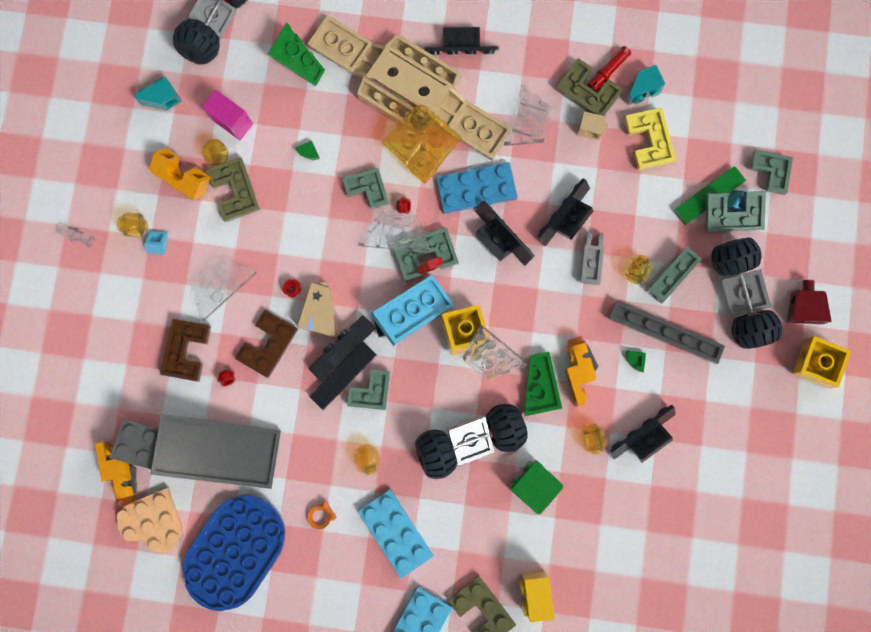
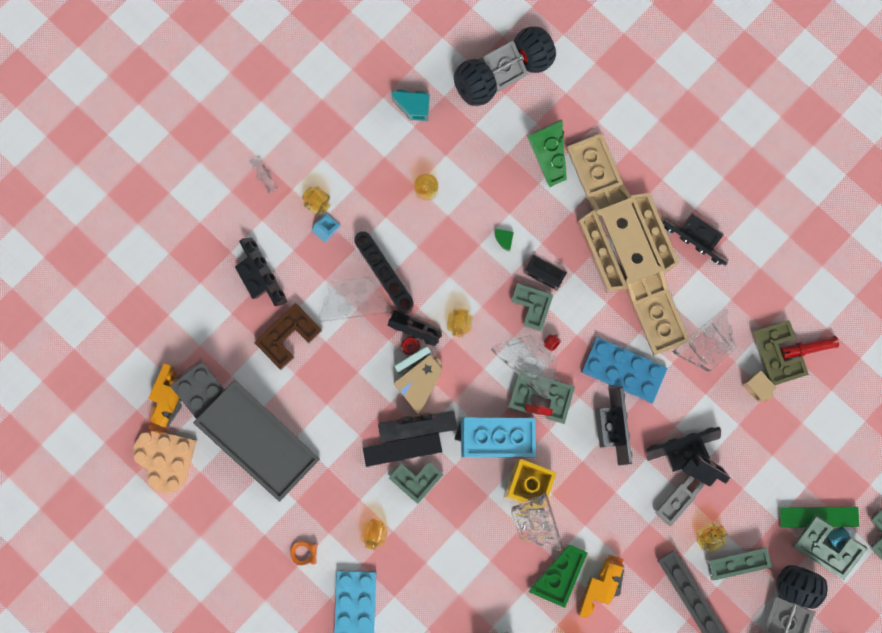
camera: 25 degrees right, 0 degrees up
(125, 318) = (257, 274): none -> black bracket
(166, 167) = (376, 172): light orange arch -> none
(222, 238) = (382, 263): none -> black beam
(226, 378) = (305, 383): red plate -> none
(227, 115) = (458, 163): dark pink piece -> none
(234, 553) = (213, 532): blue plate -> none
(245, 198) = (431, 217): olive plate -> none
(267, 359) = (374, 380): reddish brown plate -> none
(284, 271) = (415, 328): none -> black hinge
(300, 297) = (413, 359): none -> light aqua tile
(317, 241) = (459, 322): none -> clear yellow head
(359, 155) = (545, 272): none -> black hinge
(422, 142) = (604, 301): clear yellow slope -> none
(471, 440) = (470, 580): black plate -> none
(595, 220) = (704, 469): none -> black panel
(636, 360) = (656, 612): green tile -> none
(646, 84) = (831, 382): teal slope -> none
(661, 147) = (814, 425): light yellow plate -> none

